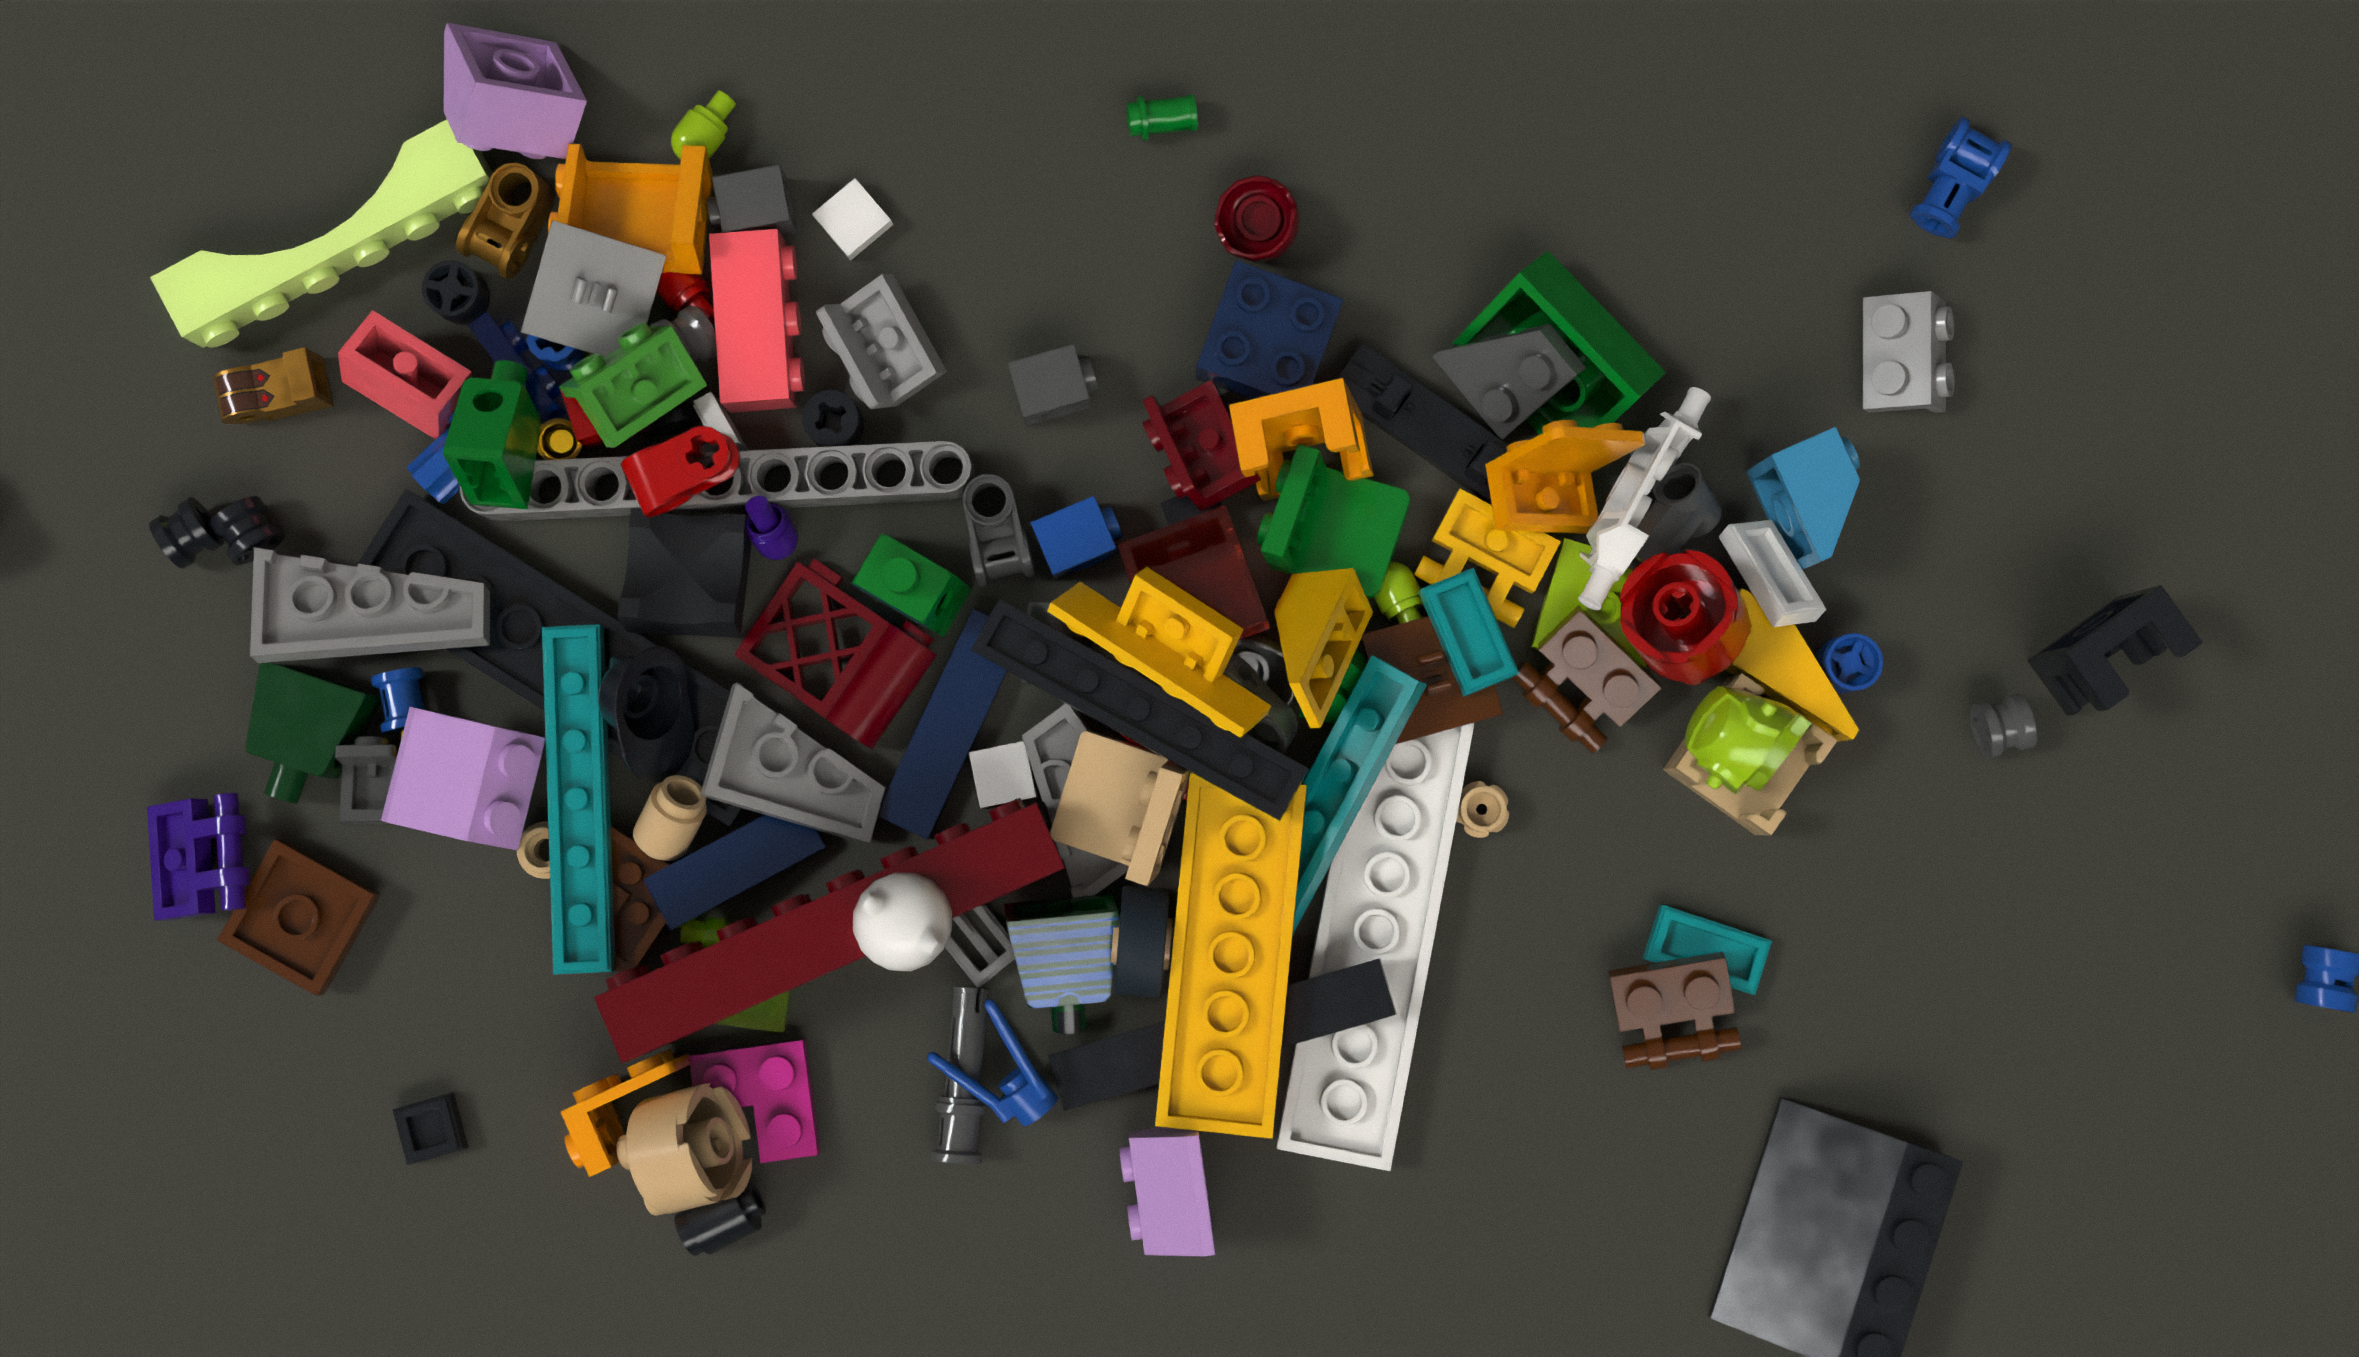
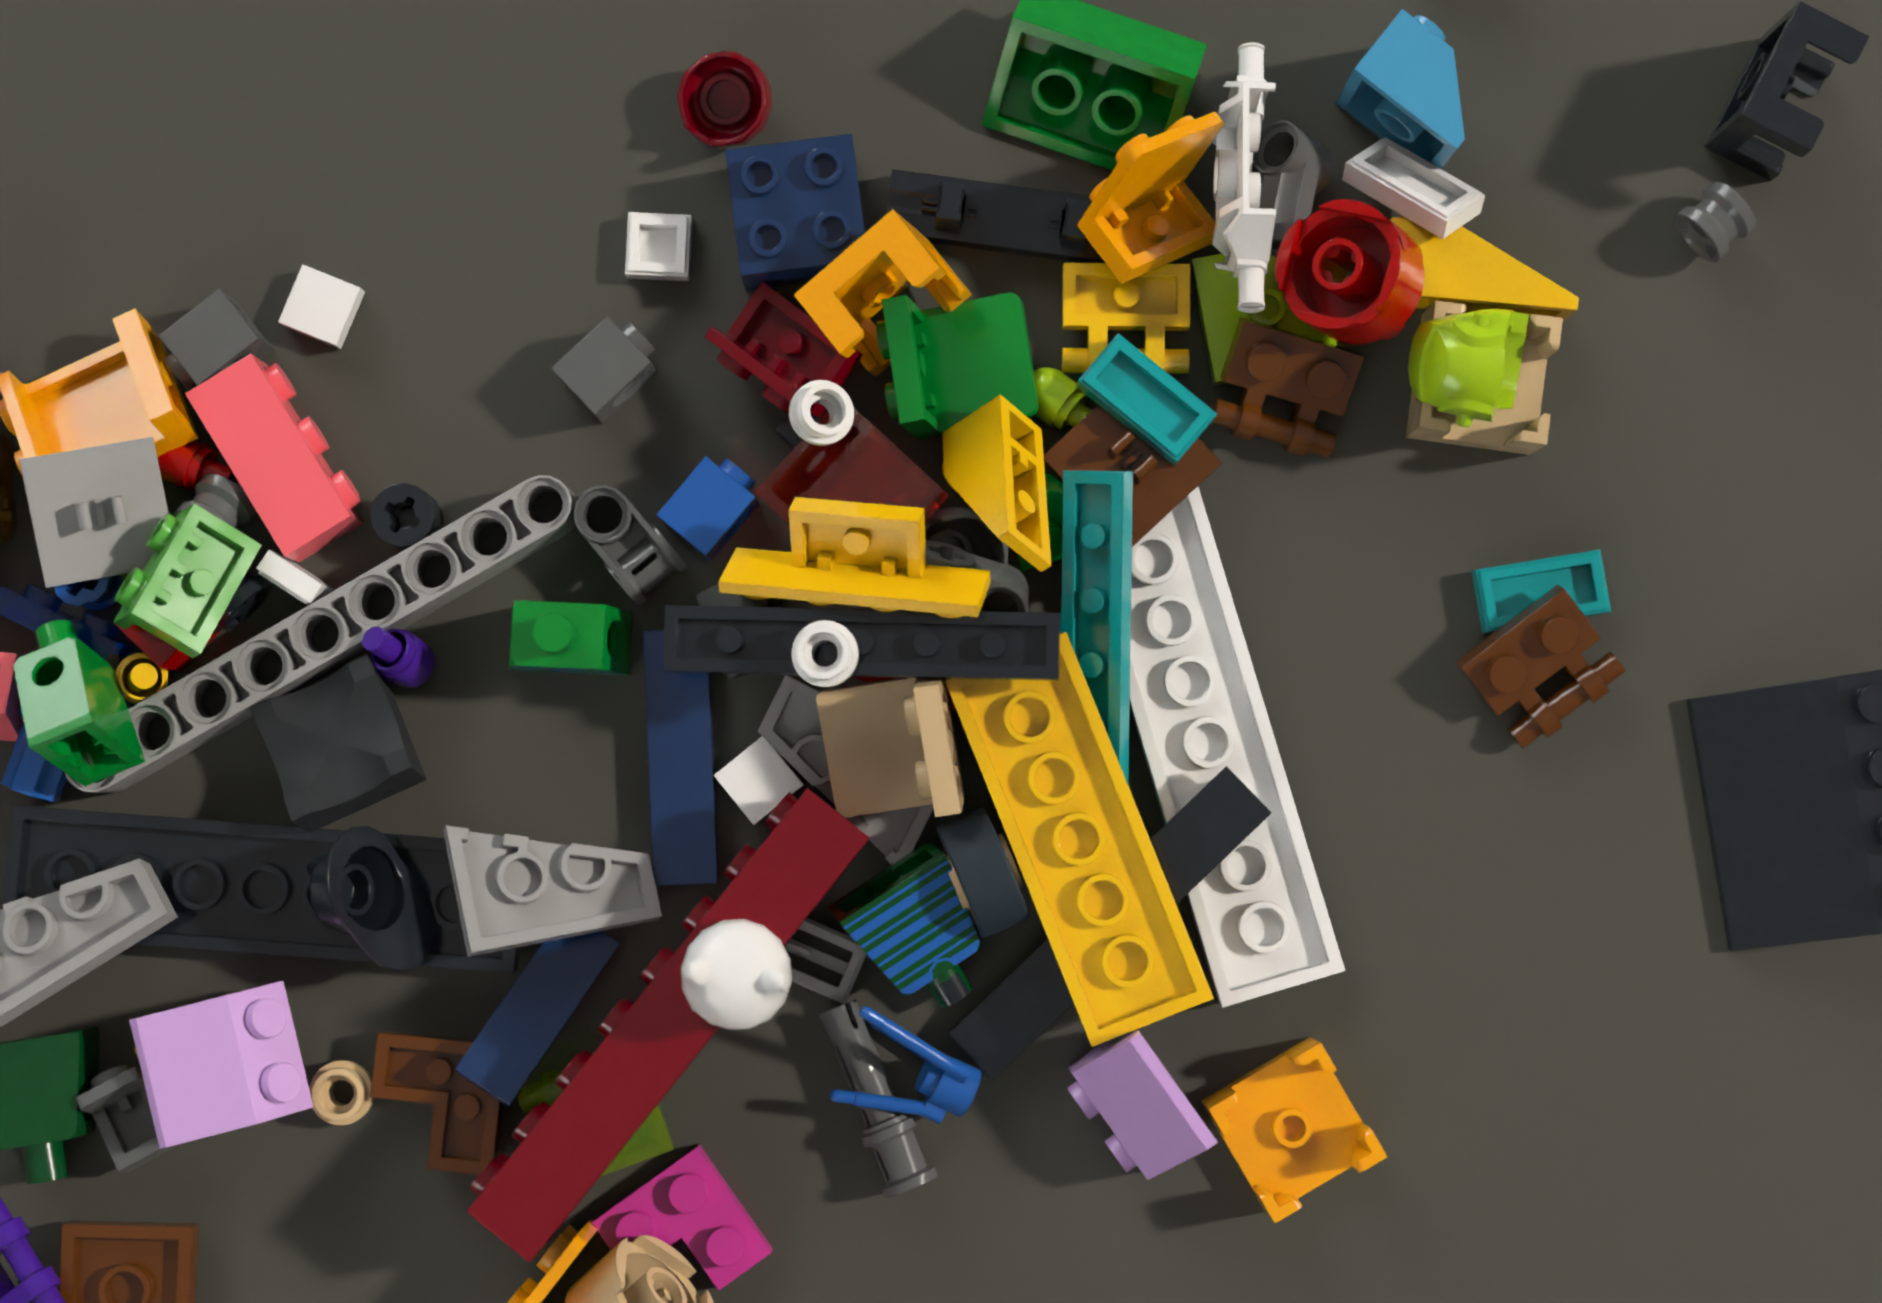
camera: 30 degrees left, 0 degrees up
(398, 692) = (110, 1013): blue bush -> none
(578, 800) = (348, 1025): teal tile -> none
(670, 471) = (270, 651): red piece -> none
(670, 818) = (450, 995): tan brick -> none
(703, 125) = (123, 289): lime cylinder -> none
(873, 681) = (582, 748): dark red piece -> none
(881, 343) = (415, 415): light grey bracket -> none
(1100, 685) = (810, 638): none -> white plate
(1144, 308) = (658, 246): none -> white tile
(1161, 116) = (576, 47): green pin -> none
(1219, 509) = (834, 400): none -> white plate
(1282, 1273) = (1292, 1127): none -> light orange panel
(1495, 802) = (1261, 556): tan plate -> none
(1510, 374) = (1055, 124): dark grey wing -> none
(1857, 659) = (1540, 229): blue wheel -> none

